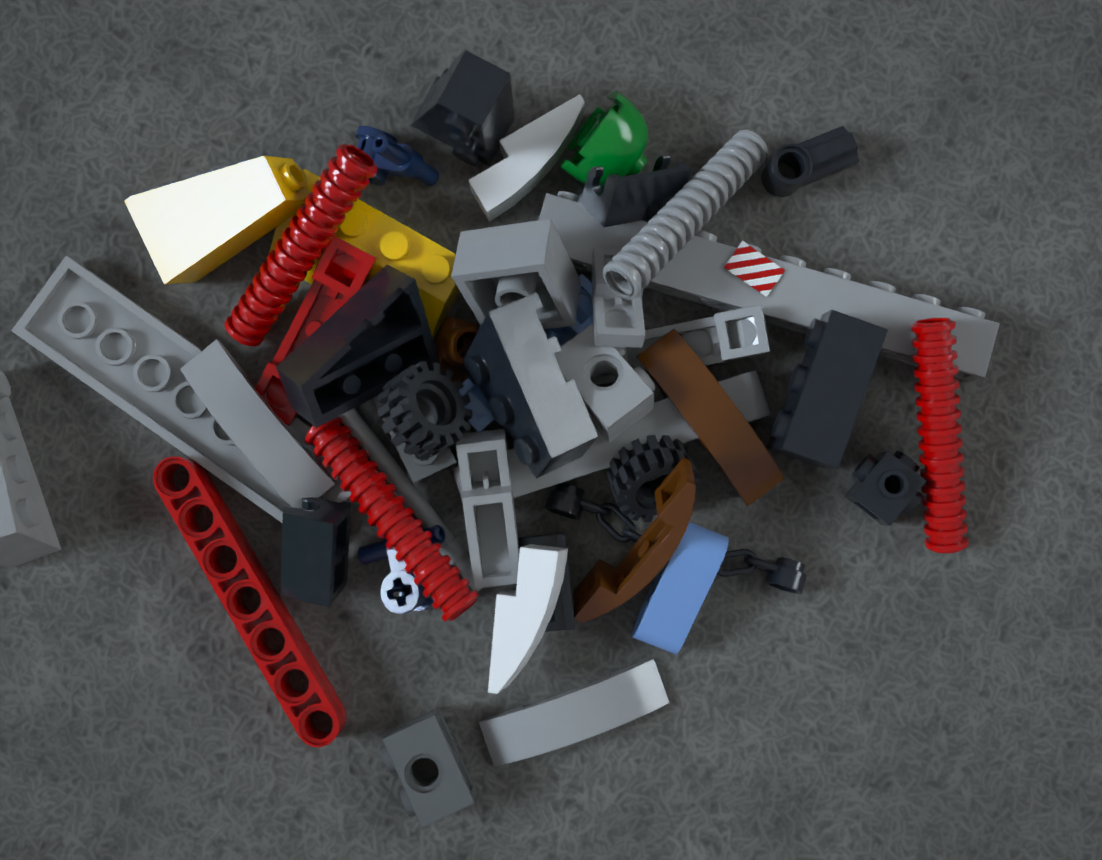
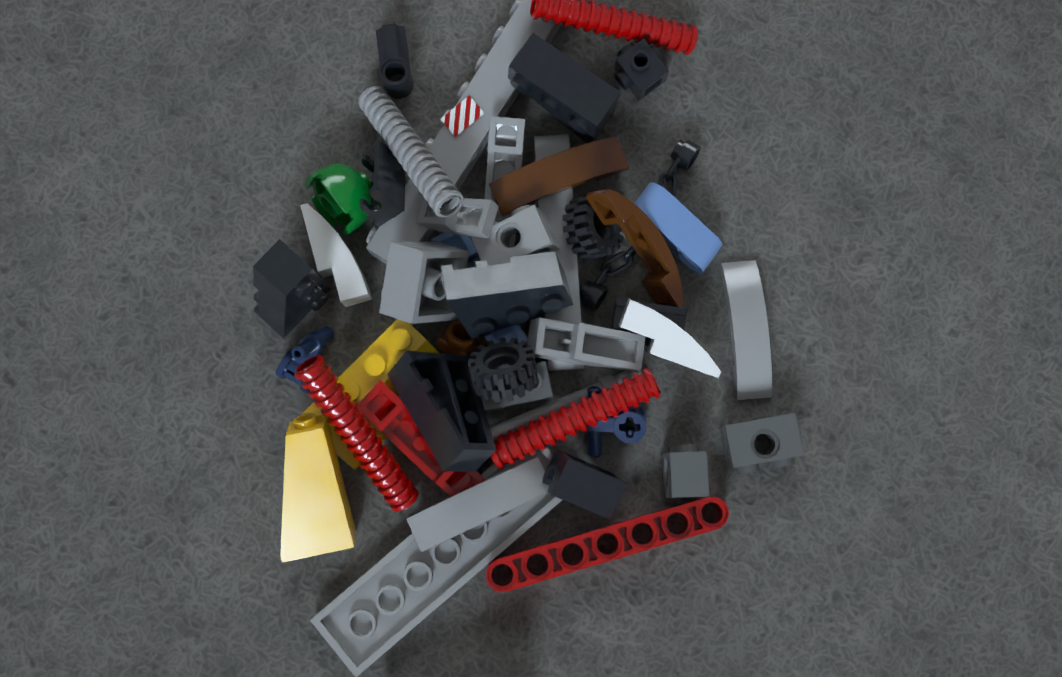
camera: 75 degrees left, 5 degrees down
(357, 678) = (685, 472): none -> dark grey brick

